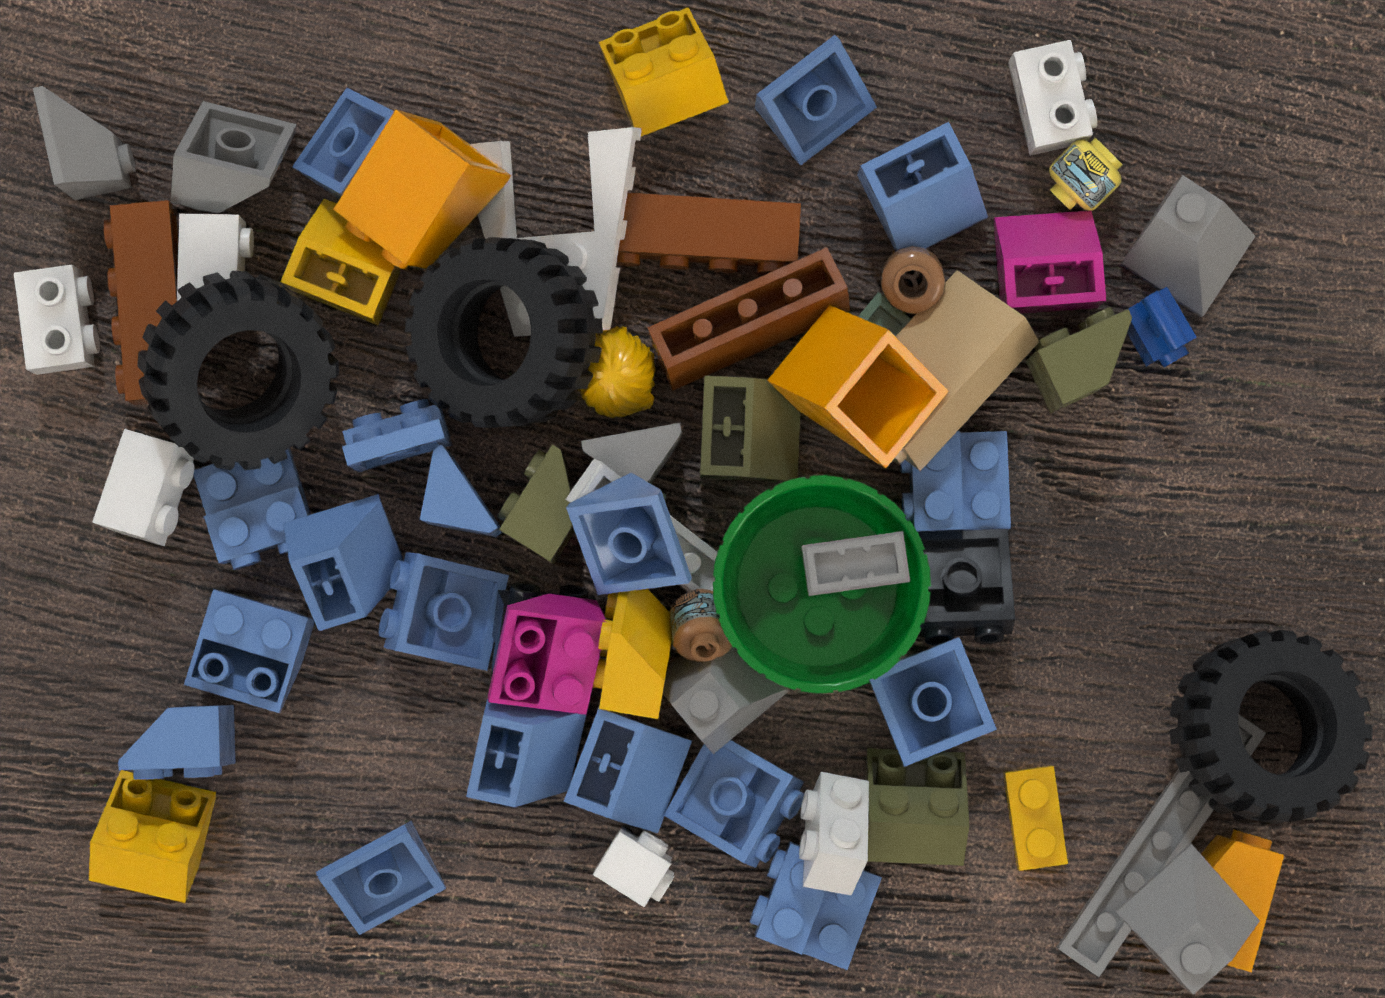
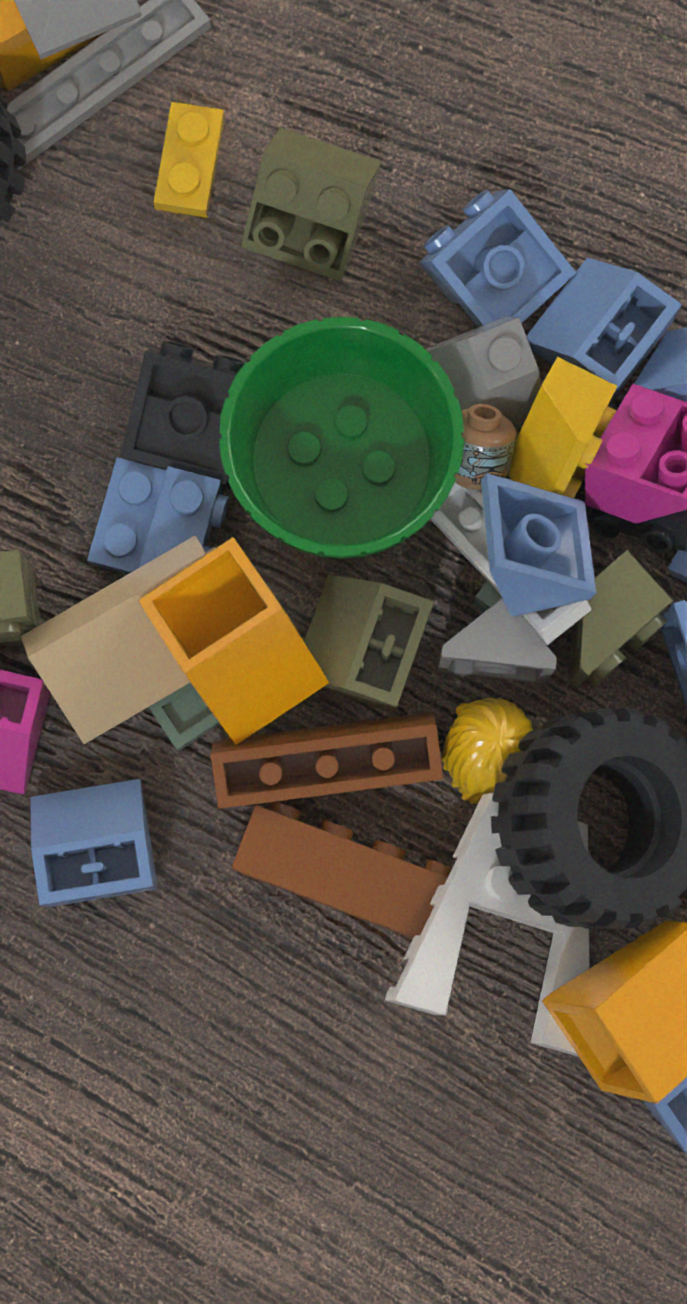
camera: 160 degrees left, 5 degrees down
(636, 866) = (624, 220): white brick -> none
(664, 71) = (336, 1069): yellow slope -> none
(812, 919) = (445, 140): medium blue plate -> none
(815, 101) = (177, 981): medium blue slope -> none
(835, 833) = (404, 191): white brick -> none
(855, 563) = (299, 440): light grey plate -> none
(916, 296) = (135, 748): medium nougat head -> none
(932, 702) = (257, 292): medium blue slope -> none

